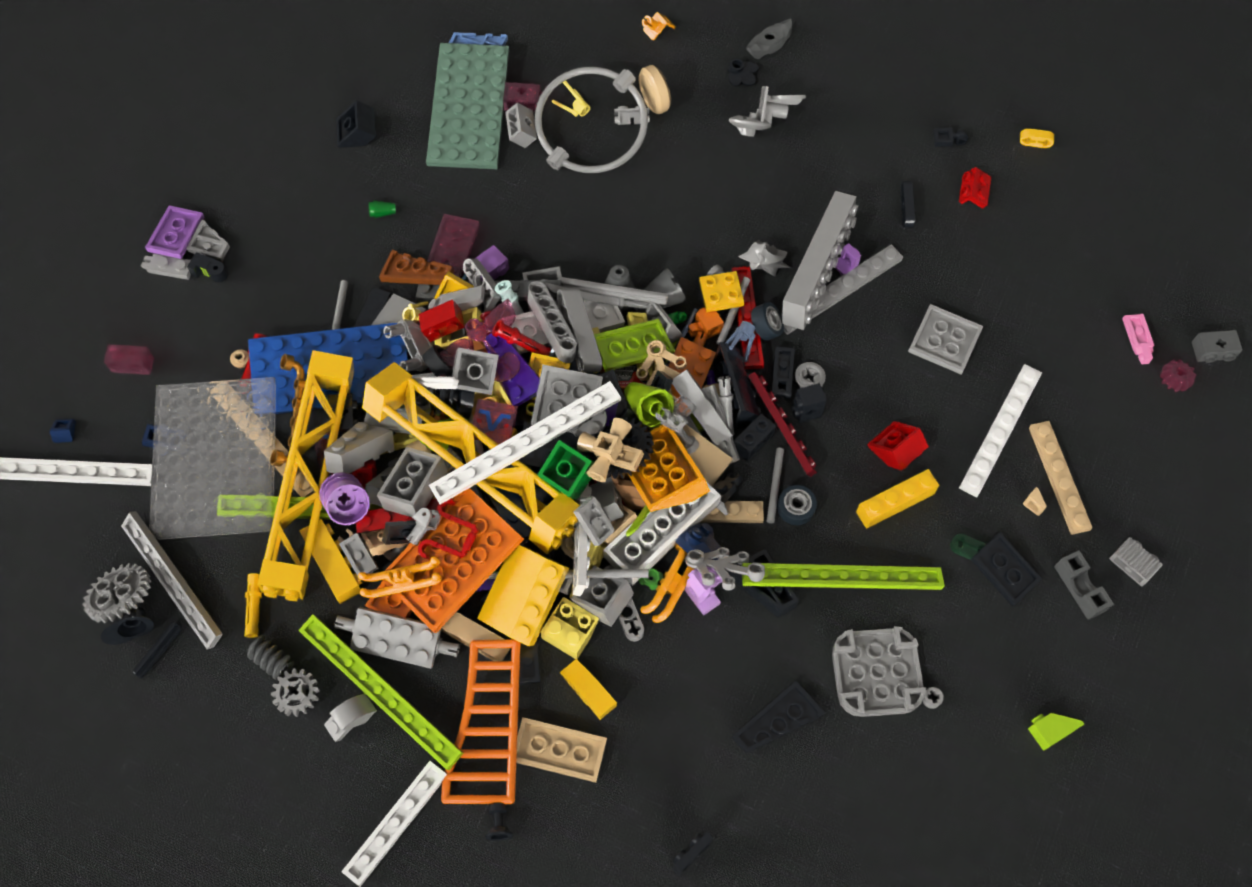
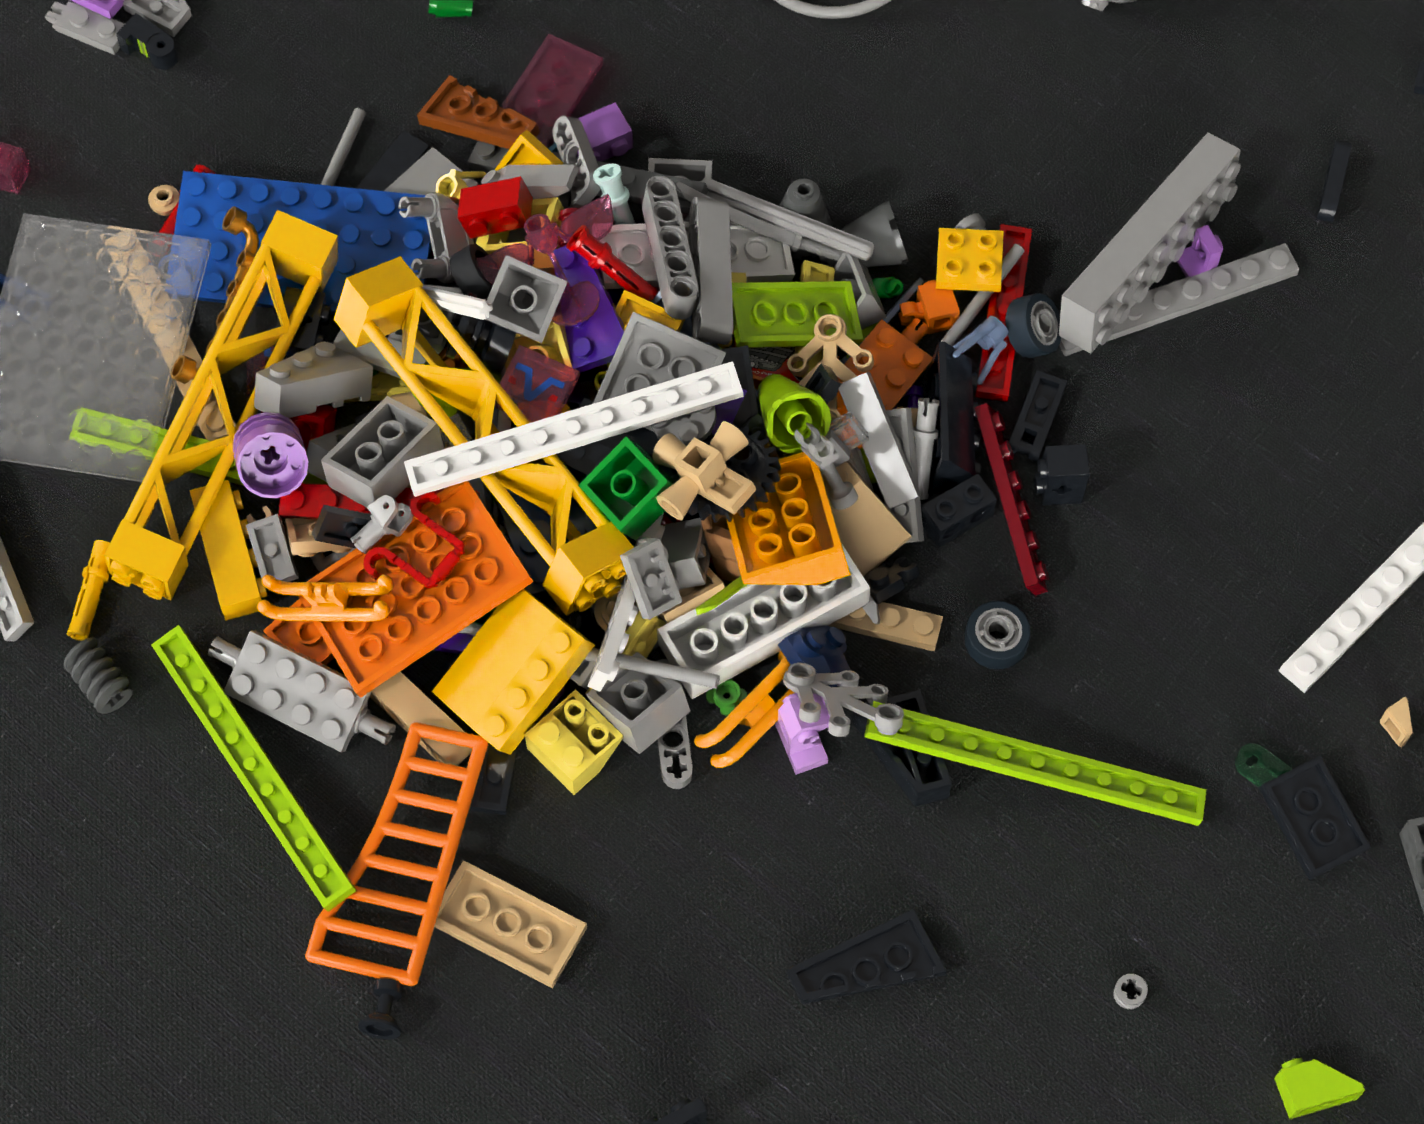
camera: 15 degrees right, 0 degrees up
(289, 698) = (119, 722): light grey gear -> none
(349, 715) = (194, 790): light grey brick -> none
(394, 824) = (225, 971): white plate -> none
(588, 689) = (579, 843): yellow slope -> none
(765, 257) = (1060, 217): light grey hair -> none
(775, 485) = (971, 596): light grey bar -> none
(813, 370) = (1090, 423): light grey gear -> none
(878, 672) = (1052, 929): light grey tile -> none
(897, 498) = (1166, 663): yellow brick -> none
(899, 445) = (1196, 577): red slope -> none
(945, 339) = (1330, 421): light grey plate -> none

